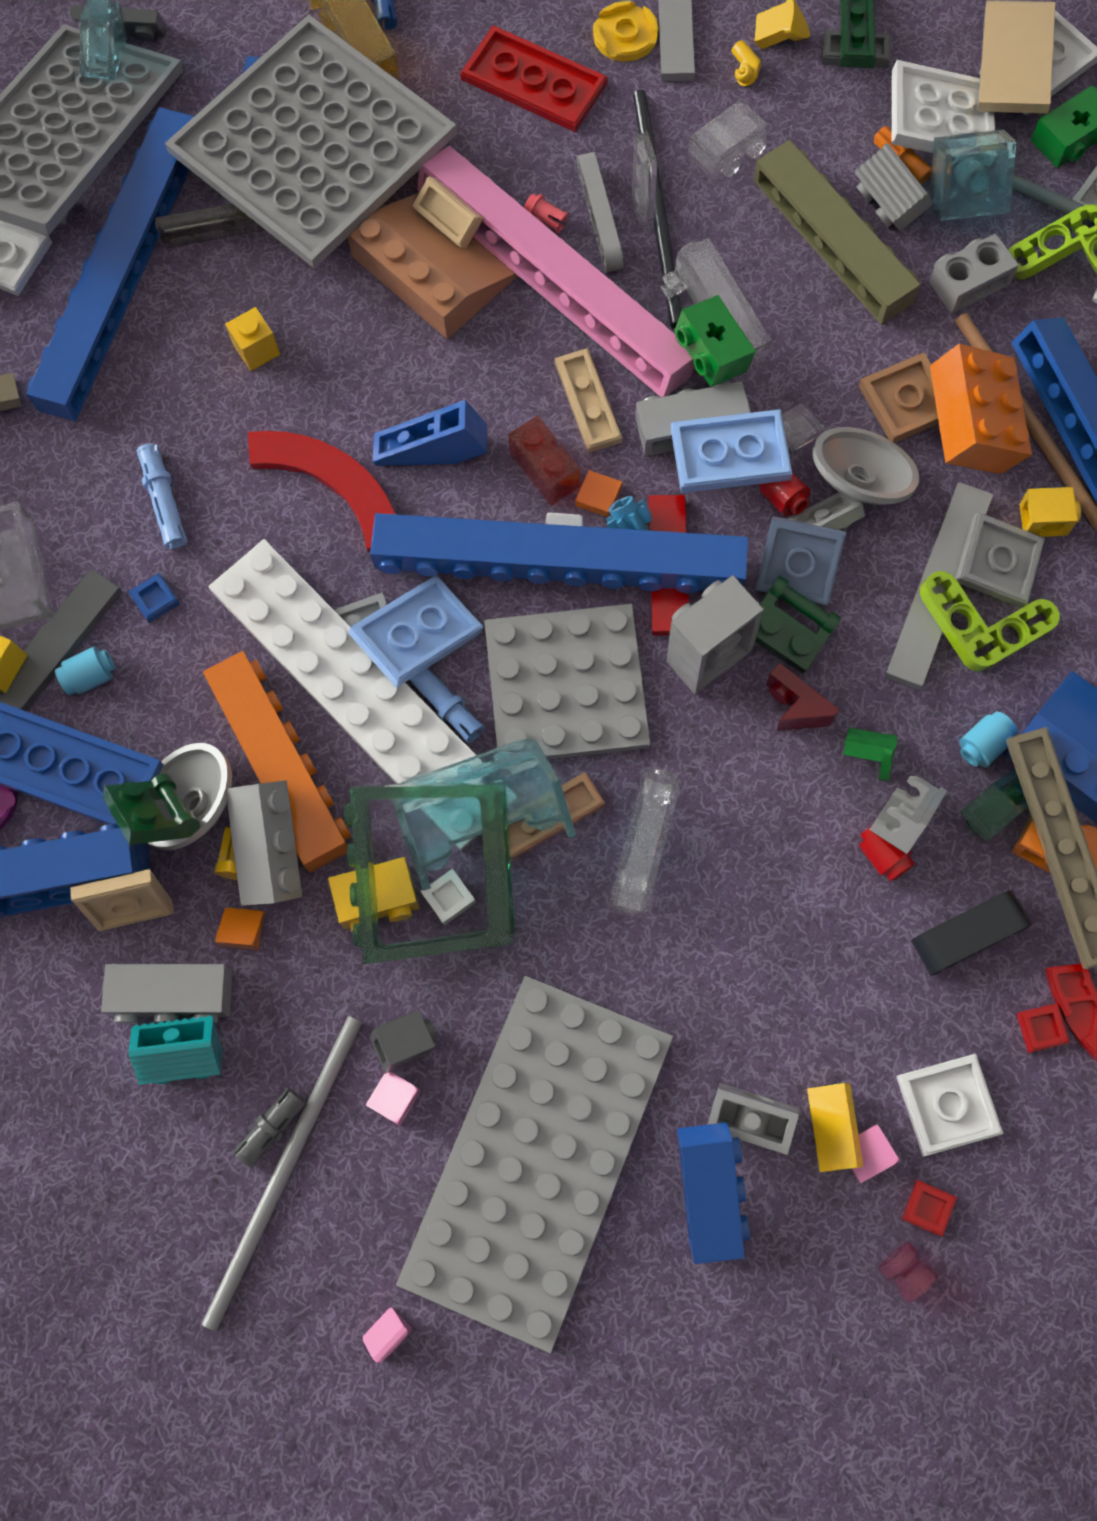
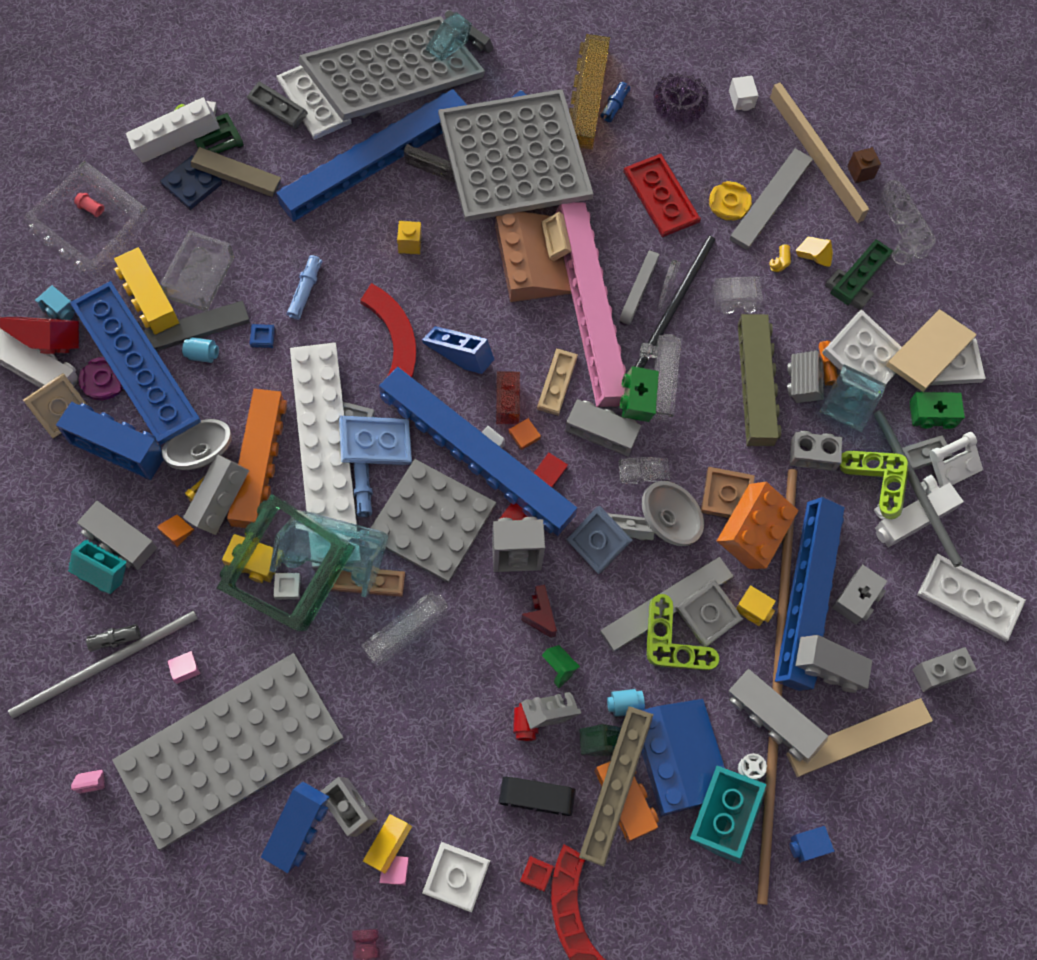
camera: 25 degrees right, 5 degrees down
(122, 900) = (128, 475): tan tile -> none
(139, 815) = (165, 437): dark green plate -> none
(403, 1041) = (208, 641): dark grey brick -> none
(545, 212) = (609, 265): coral pin -> none
(629, 514) = (528, 456): dark azure gear -> none
(731, 451) = (605, 457): light blue tile -> none
(787, 496) = (621, 497): red brick -> none
(787, 636) = (562, 572): dark green plate -> none
(929, 1208) = (403, 921): red tile -> none

